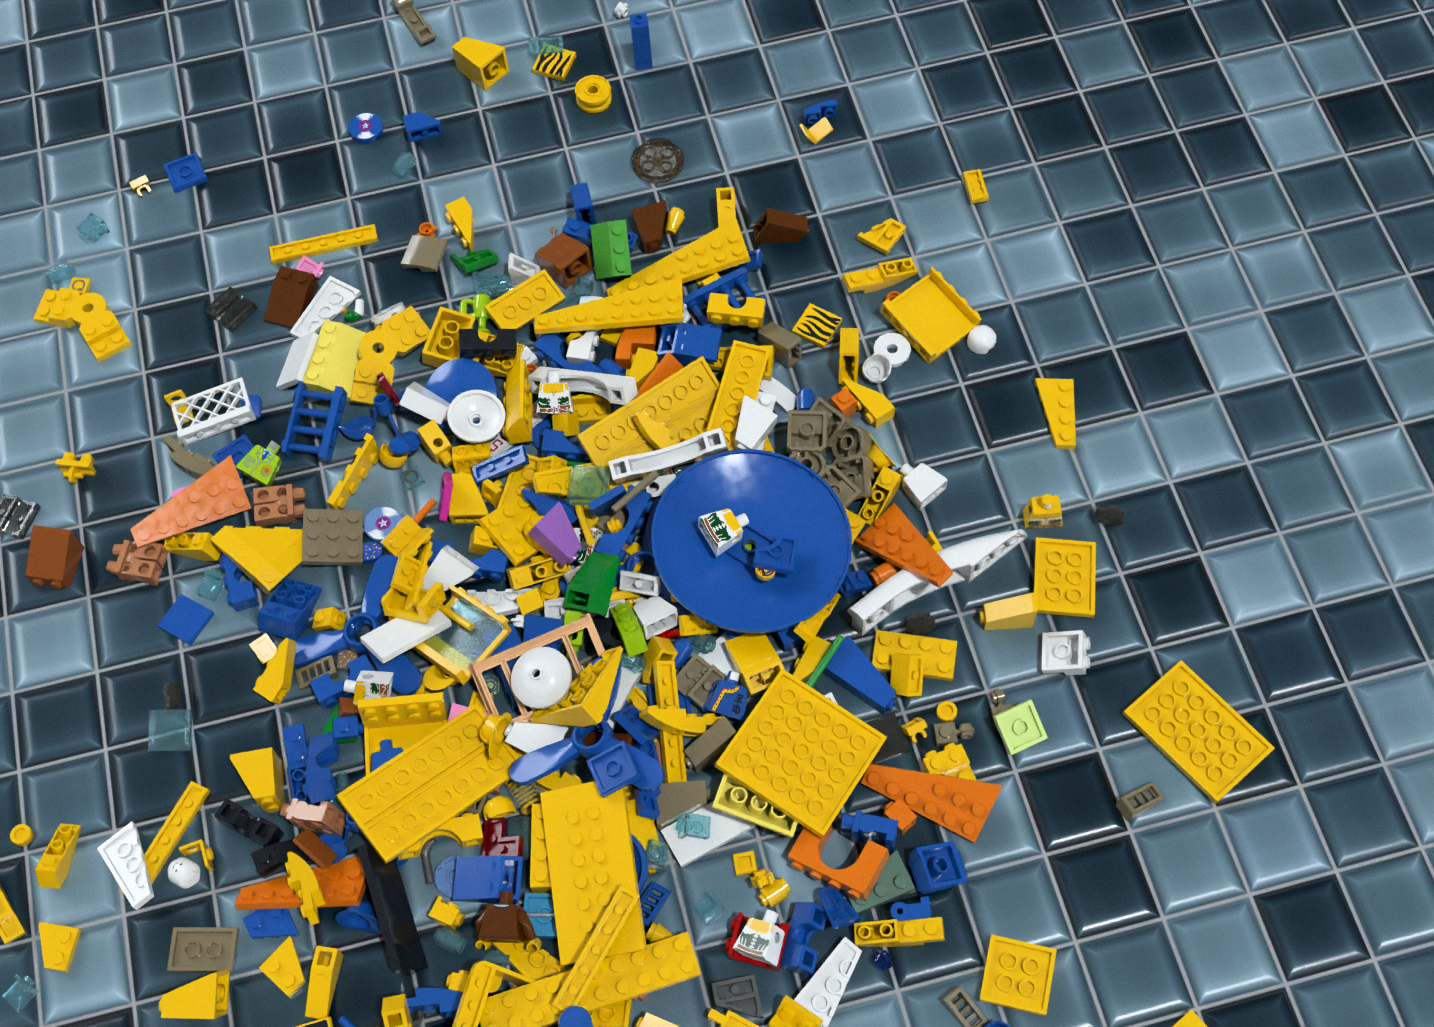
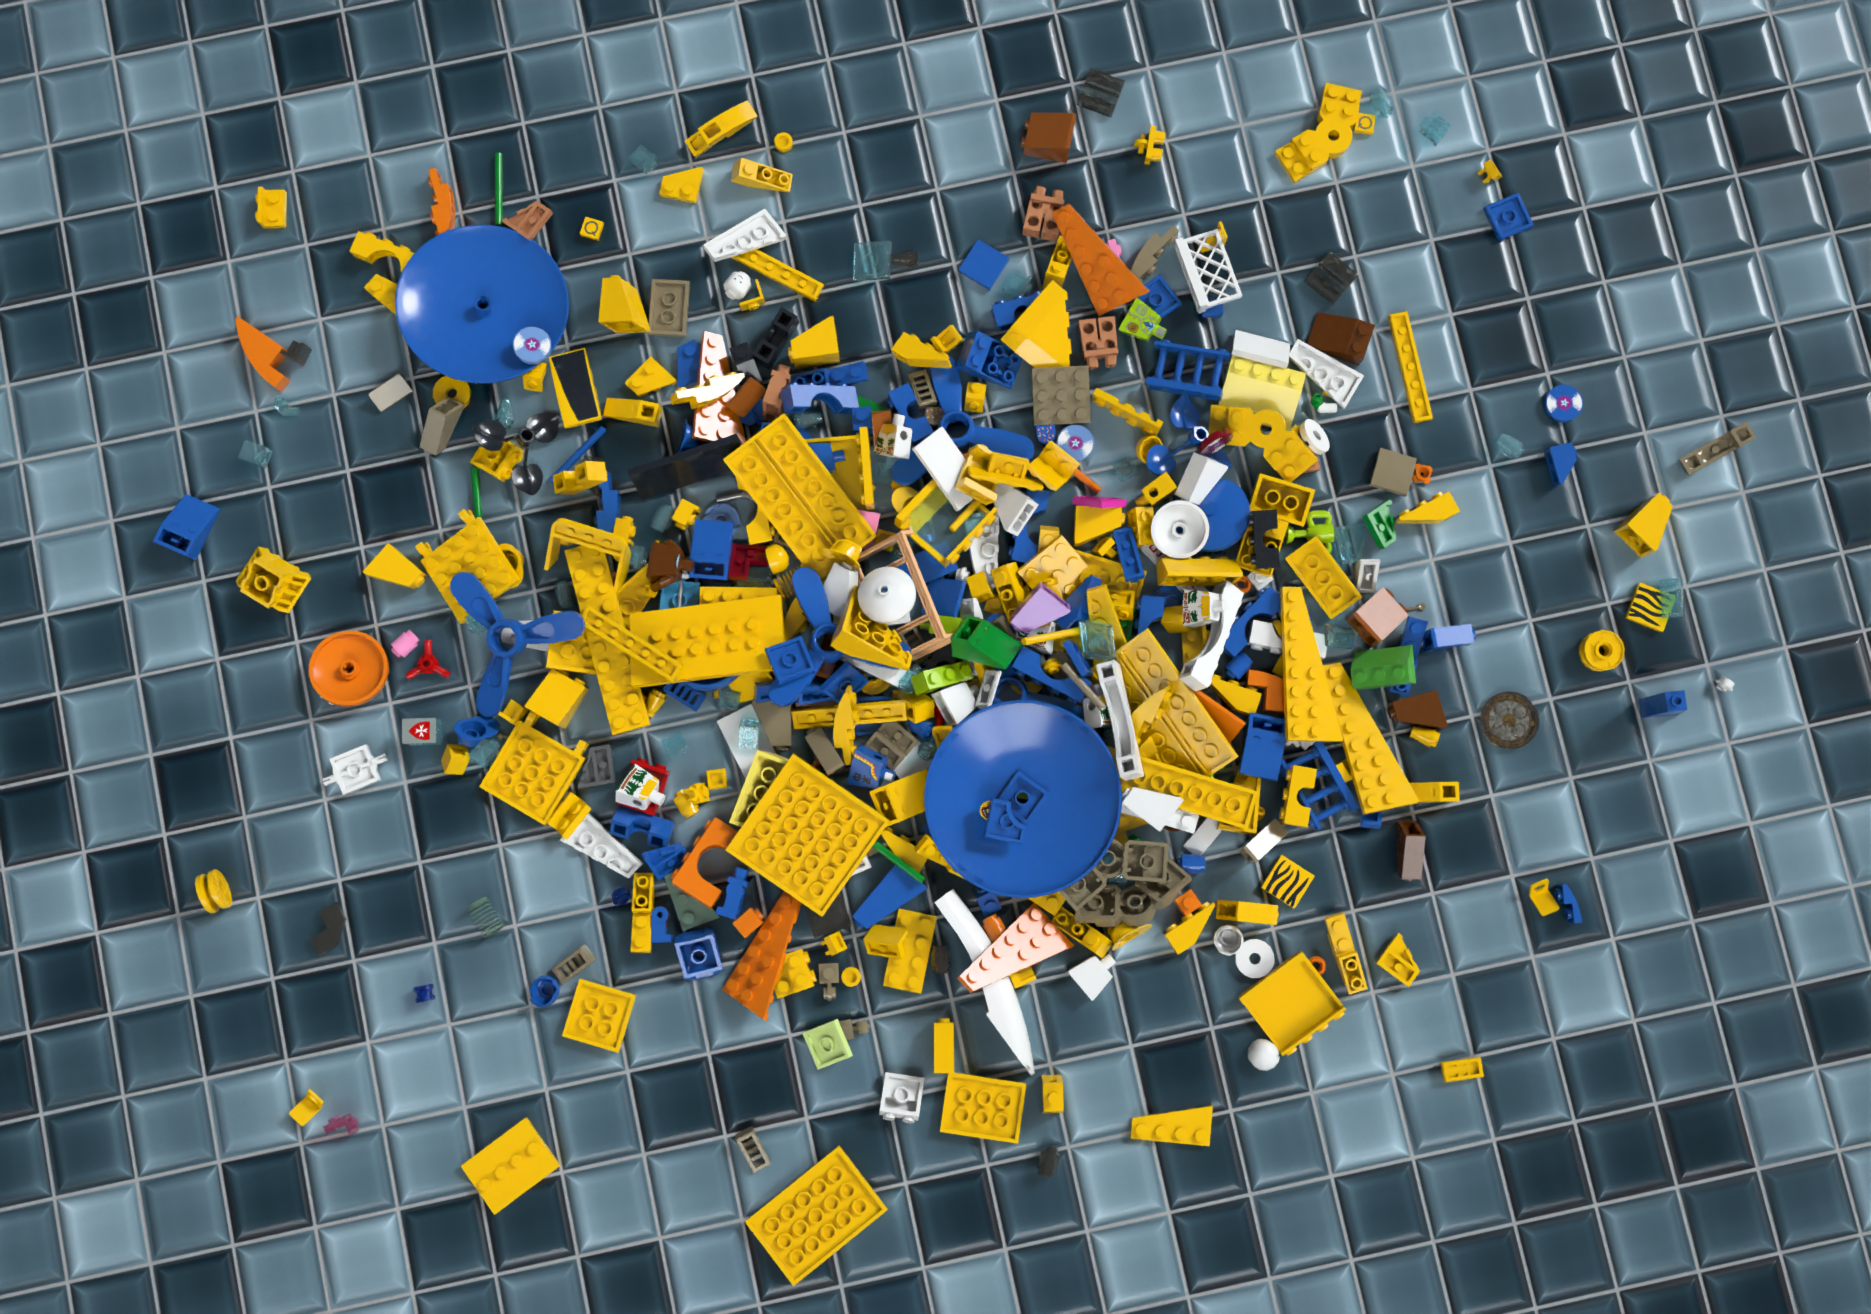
camera: 90 degrees right, 20 degrees up
(310, 266) = (1376, 354): bright pink bracket -> none
(722, 529) = (1031, 770): torso -> none

